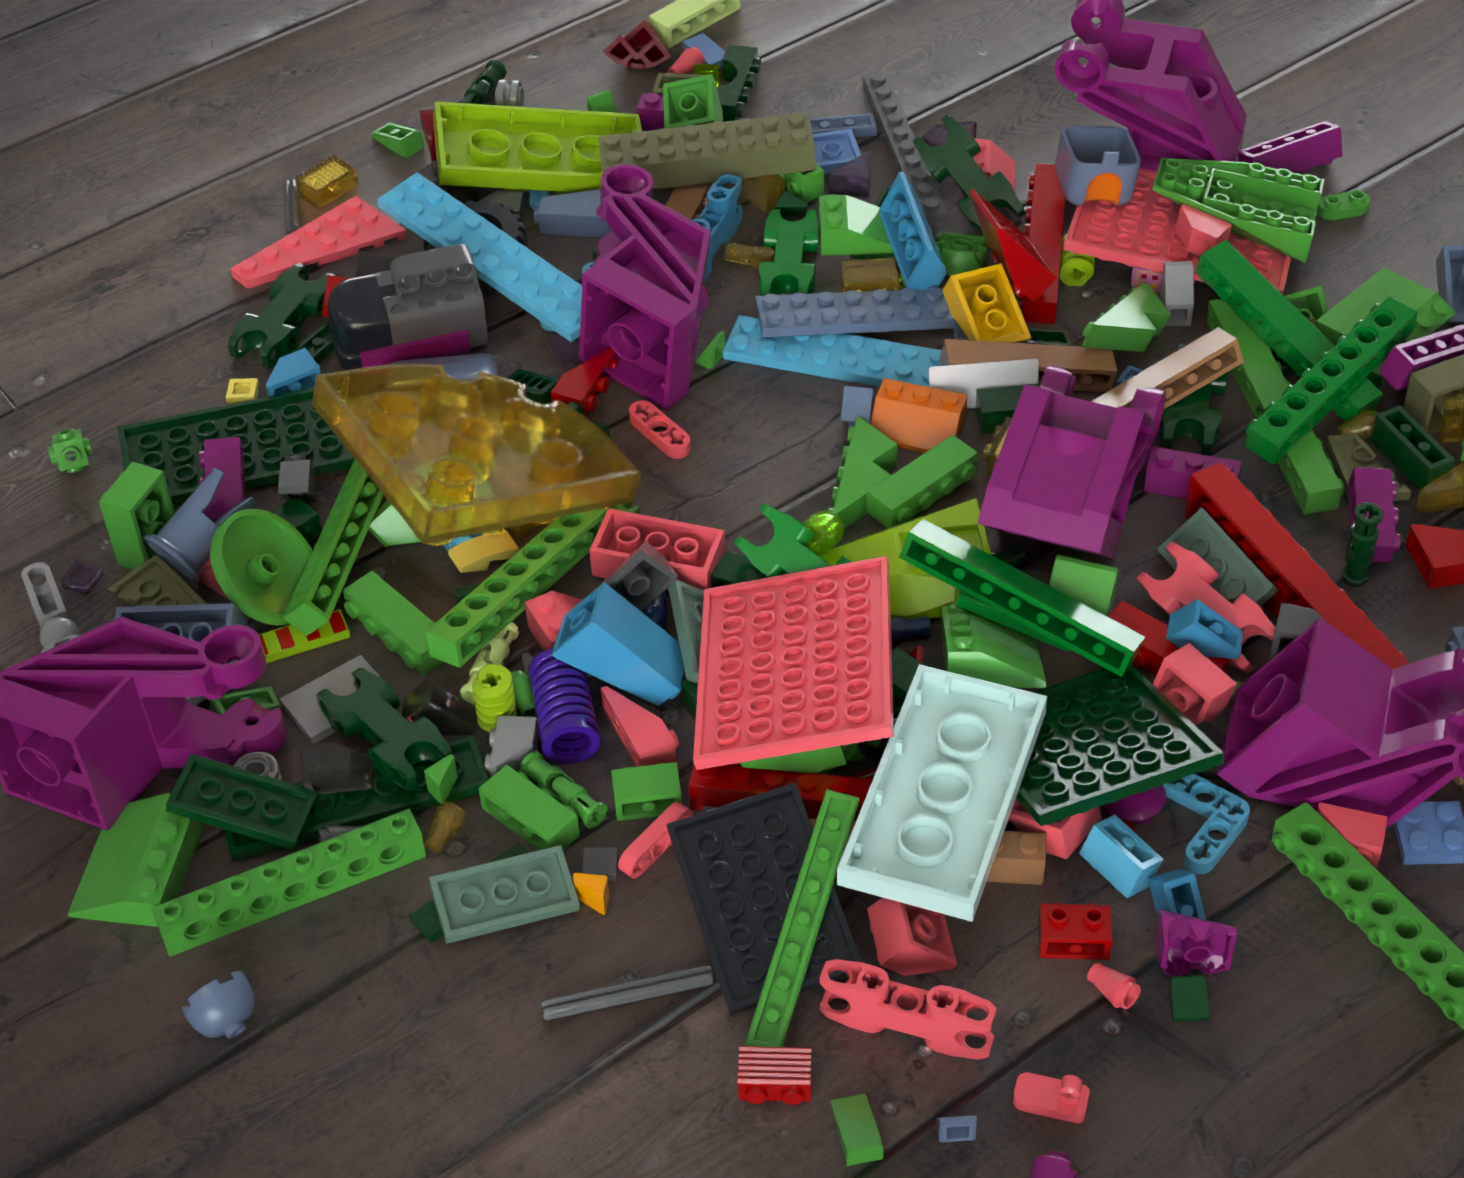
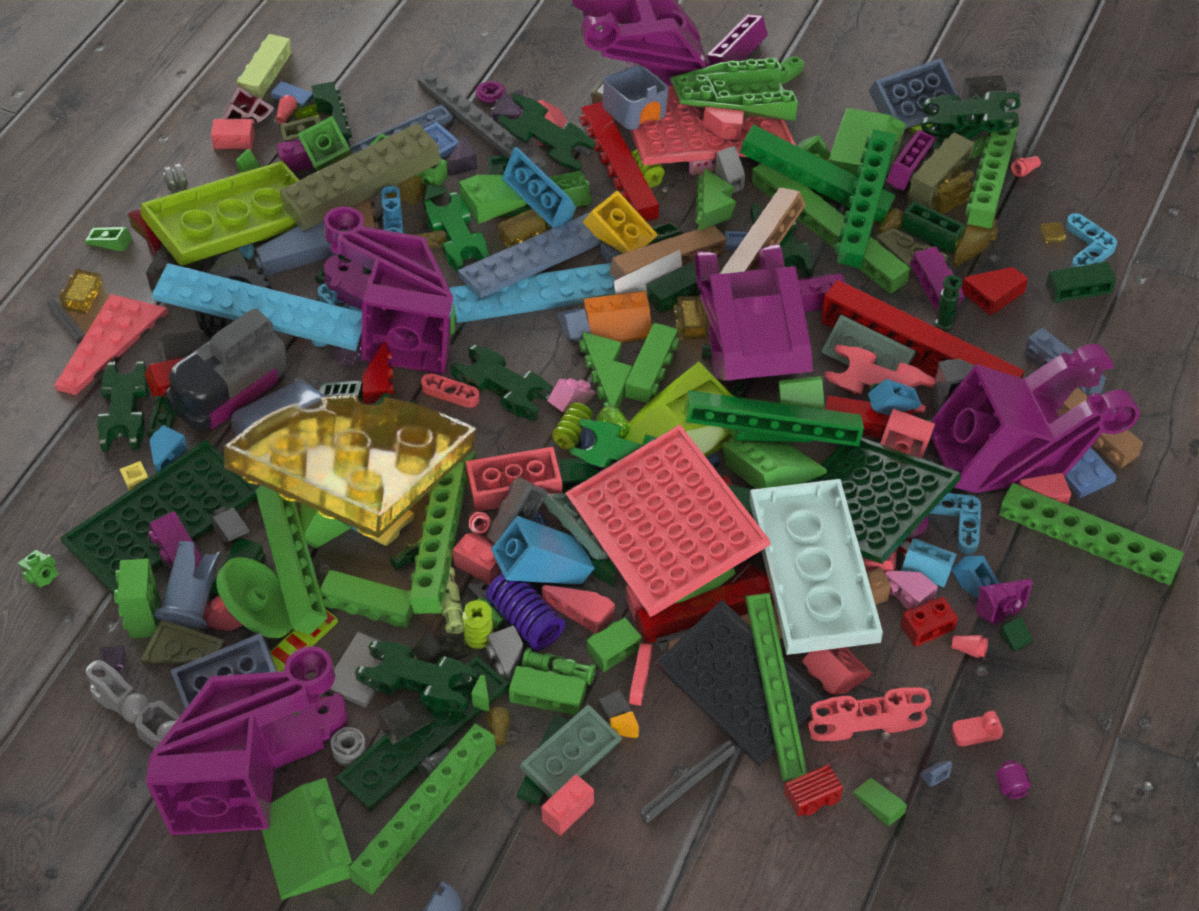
camera: 30 degrees left, 5 degrees up
(242, 801) = (360, 768): dark green plate -> none
(457, 953) = (567, 805): none -> coral brick
(485, 83) = (147, 177): dark green piece -> none
(575, 587) = (480, 526): none -> coral cone
(608, 71) = (232, 134): none -> coral brick
(733, 453) = (491, 374): none -> dark green piece
(759, 528) = (567, 430): none -> lime piece
(796, 484) = (570, 392): none -> bright pink slope
(931, 114) = (490, 87): none -> magenta gear
(1011, 247) = (614, 178): red slope -> none
(1076, 877) = (911, 588): none -> bright pink slope

